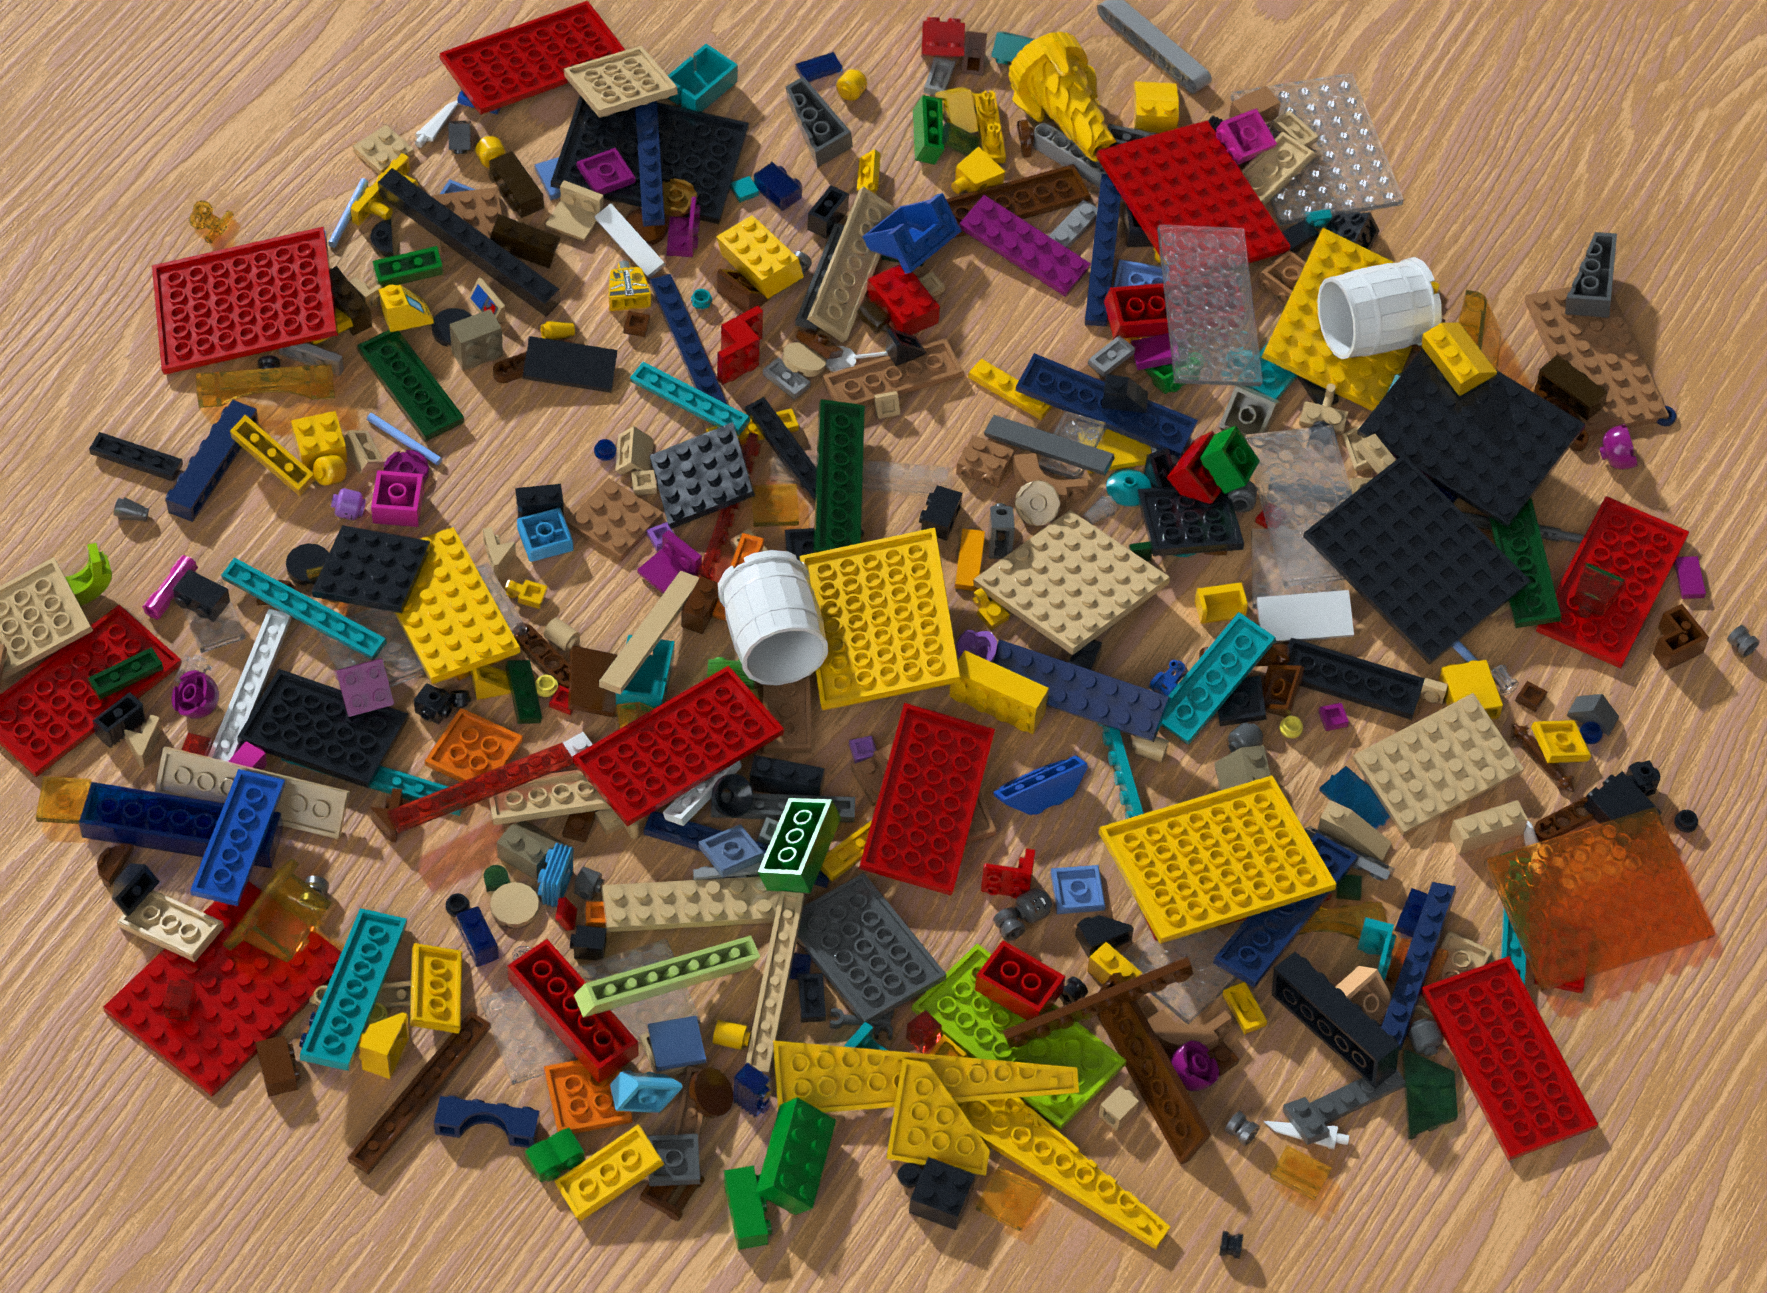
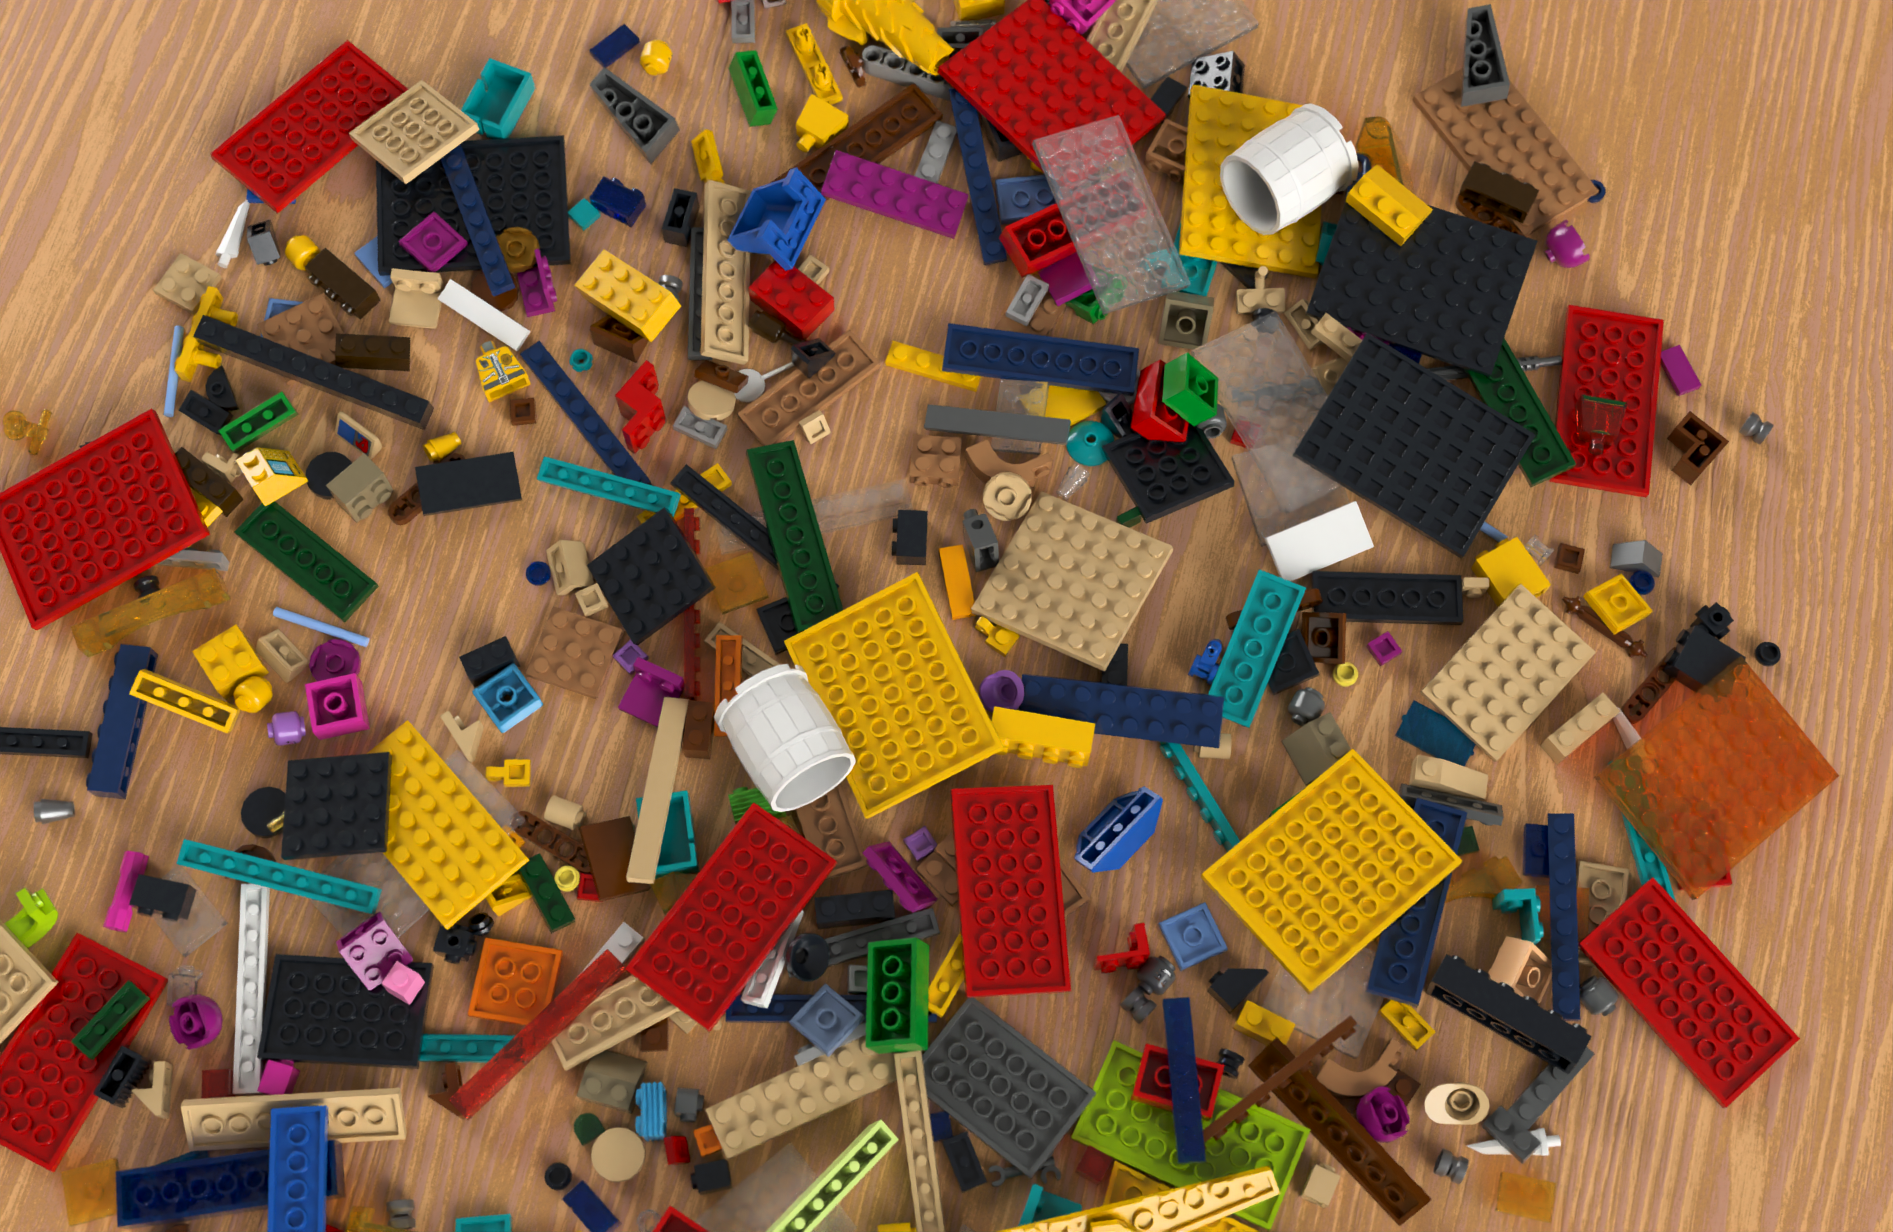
camera: 15 degrees left, 15 degrees up
(363, 248) = (205, 412): none -> black plate
(380, 715) = (403, 982): none -> bright pink brick
(835, 762) = (899, 876): none -> magenta plate
(959, 108) = (777, 56): yellow brick -> none
(959, 139) = (789, 91): clear green plate -> none
(1024, 975) = (1183, 1080): none -> clear blue plate
(1124, 394) = (1057, 345): black slope -> none
(1220, 602) = (1229, 552): yellow panel -> none
(1263, 1078) = (1456, 1104): none -> tan piece
(1319, 218) = (1182, 71): teal plate -> none
(1428, 1094) = (1620, 1059): clear green wing -> none

